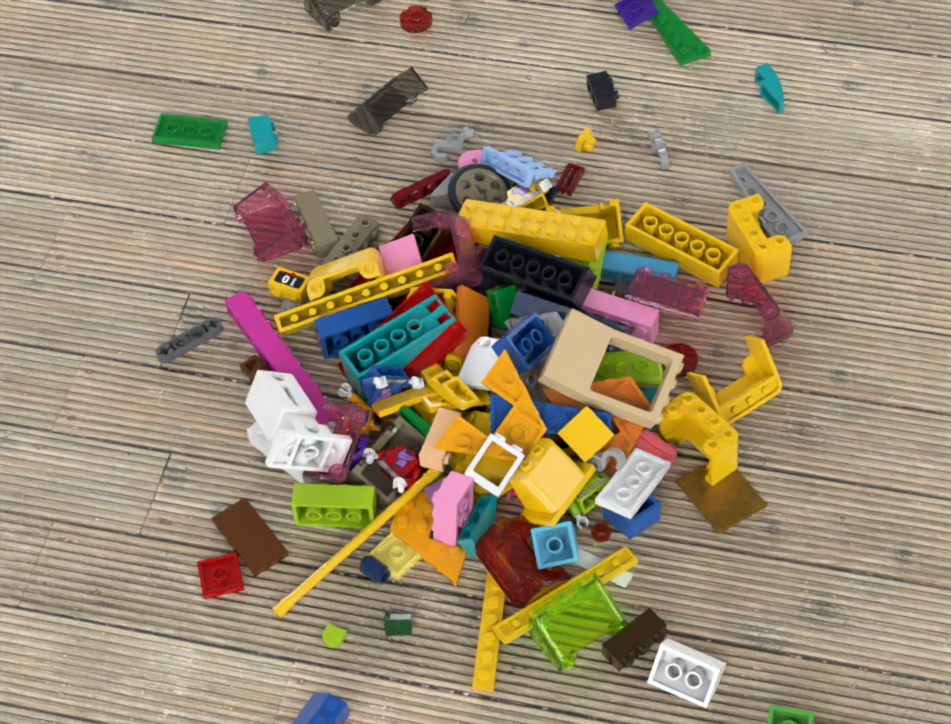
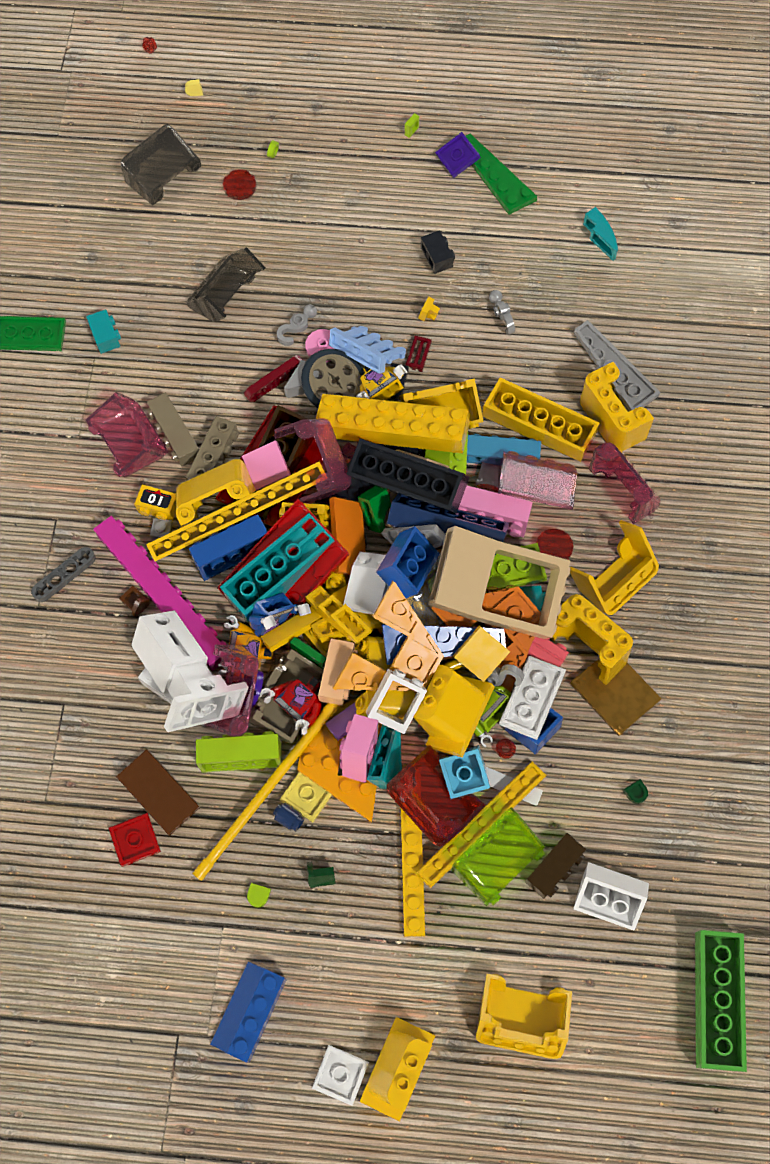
camera: 10 degrees left, 15 degrees up
(728, 585) = (636, 792): none -> dark green tile

